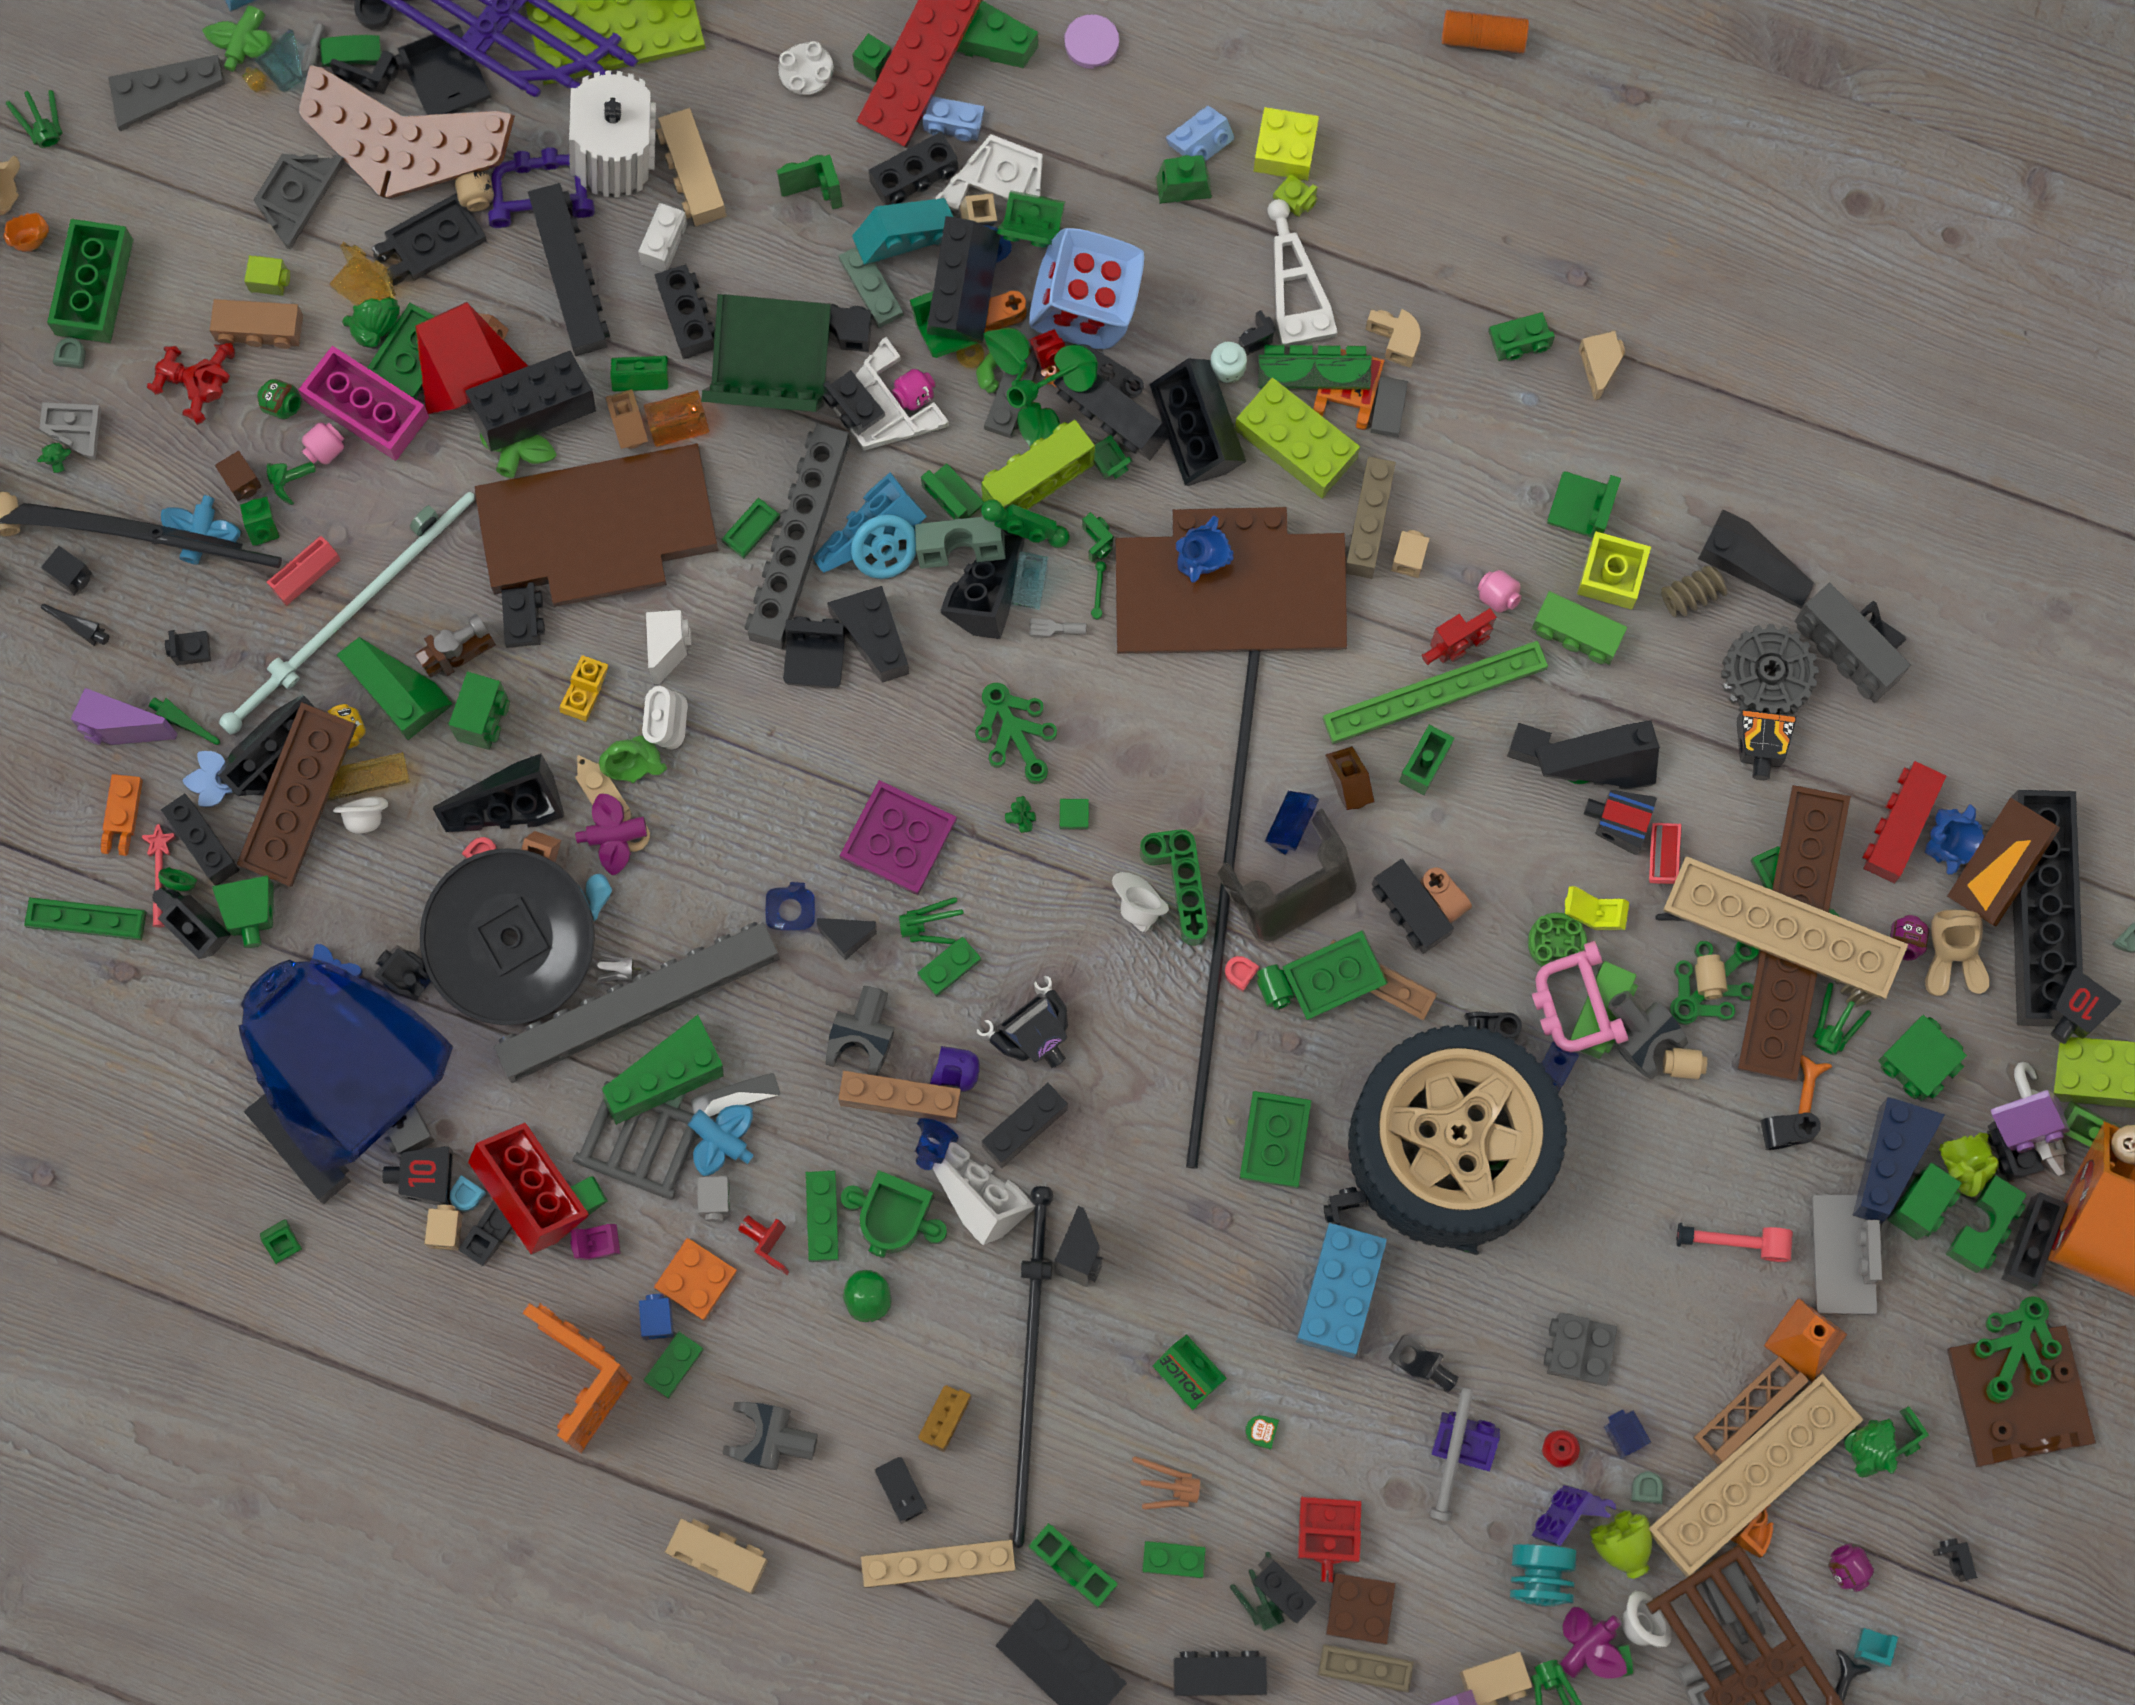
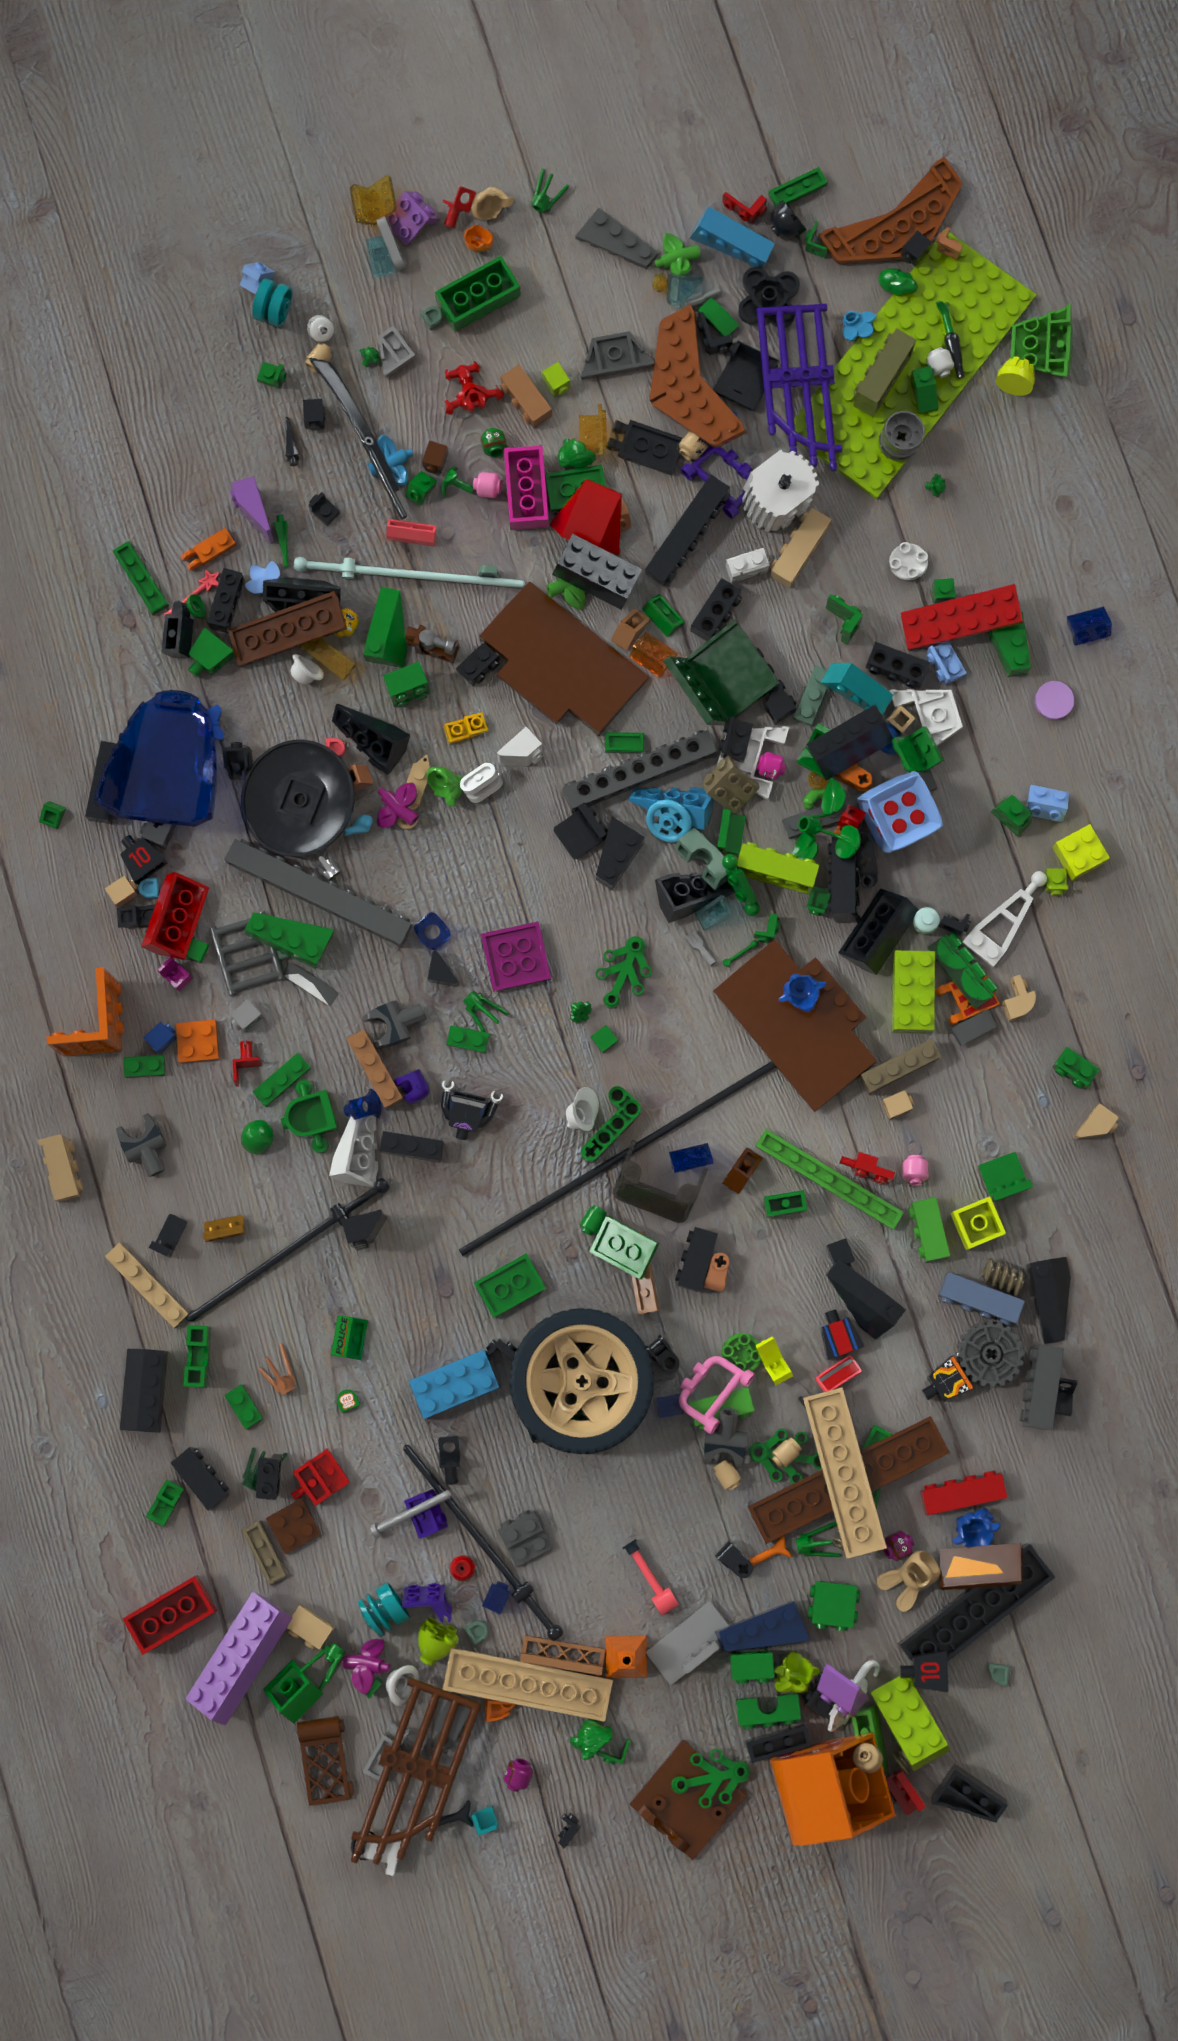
camera: 55 degrees right, 5 degrees up
(721, 1137) = (280, 994): dark azure plant -> none
(898, 449) = (730, 785): none -> dark tan bracket
(1240, 972) = (588, 1195): coral tile -> none
(1641, 1400) = (522, 1591): none -> black bar
(1699, 634) = (980, 1298): none -> sand blue brick

